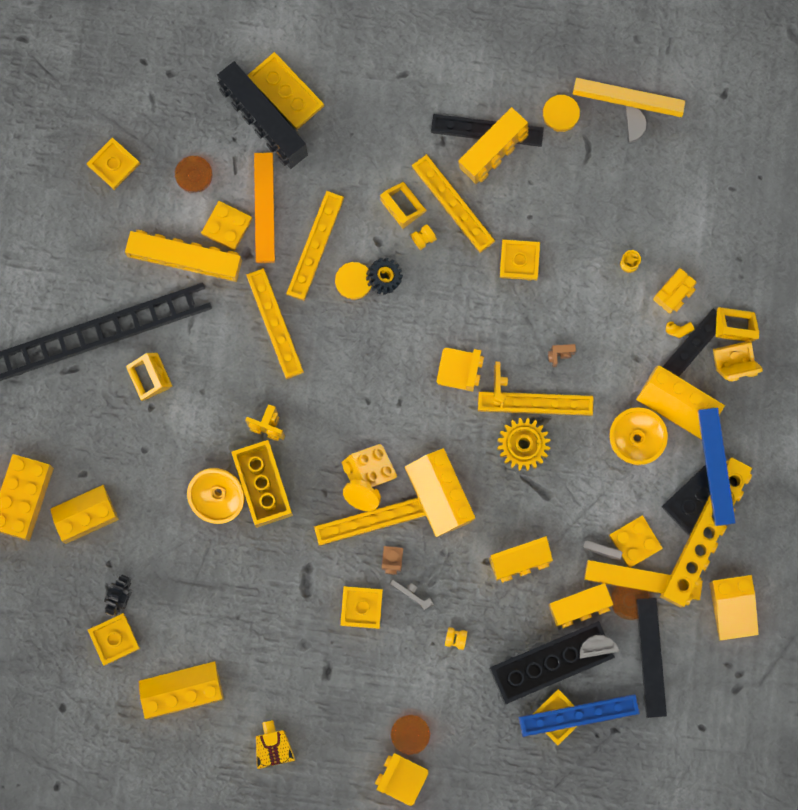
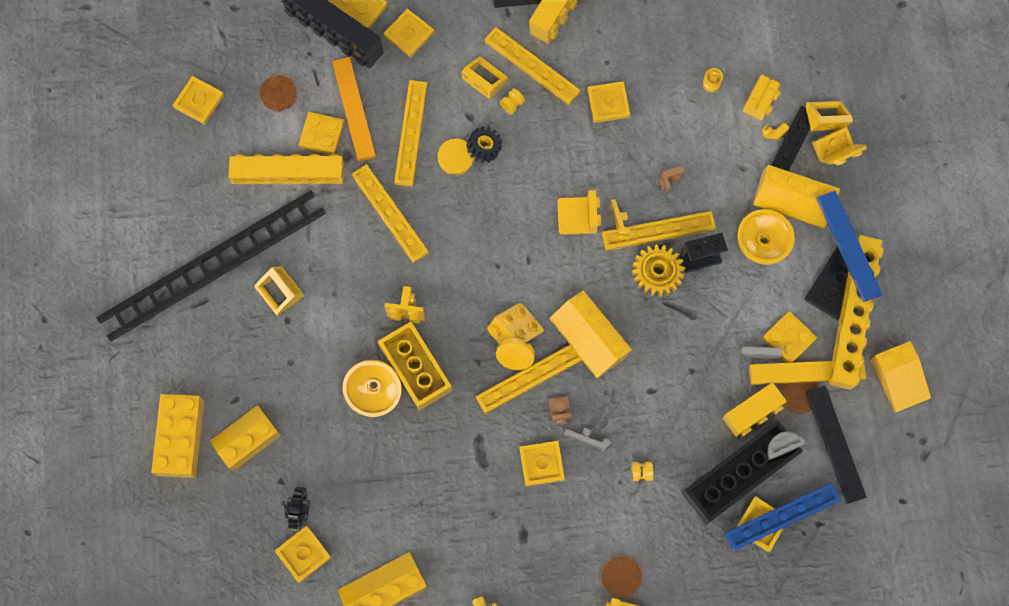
camera: 15 degrees left, 5 degrees down
(337, 141) = (409, 33): none -> yellow plate
(521, 559) = (685, 379): yellow slope -> none
(565, 440) = (701, 255): none -> black panel

